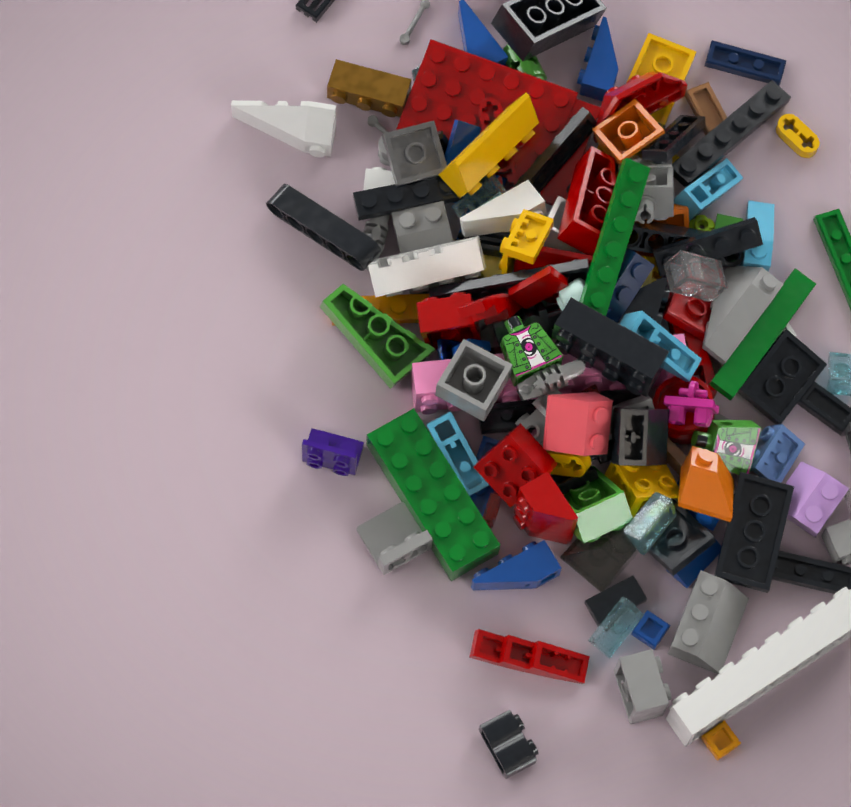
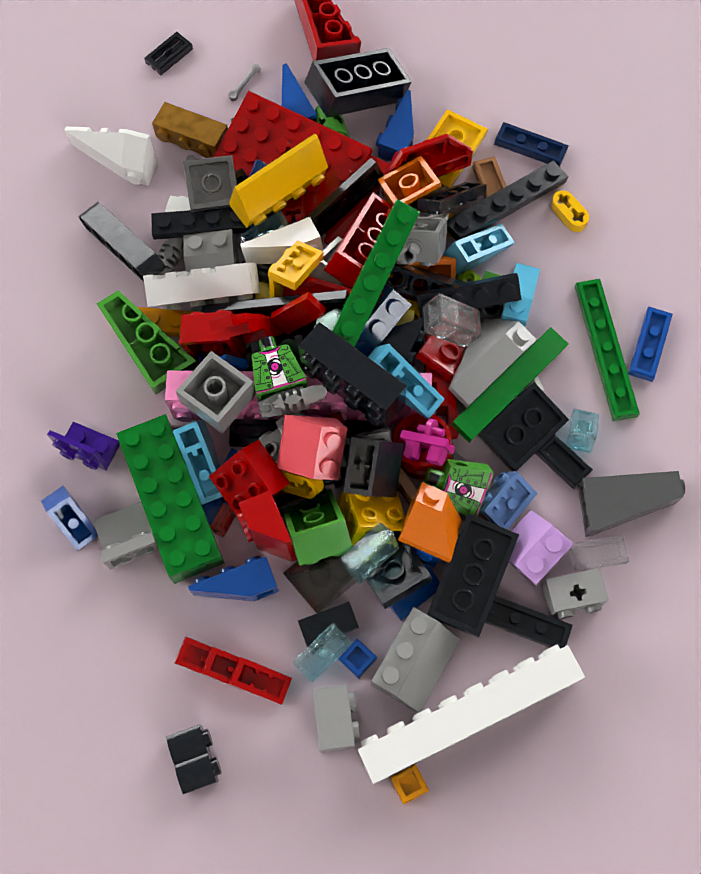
camera: 15 degrees right, 0 degrees up
(332, 527) = (69, 518): none -> blue slope

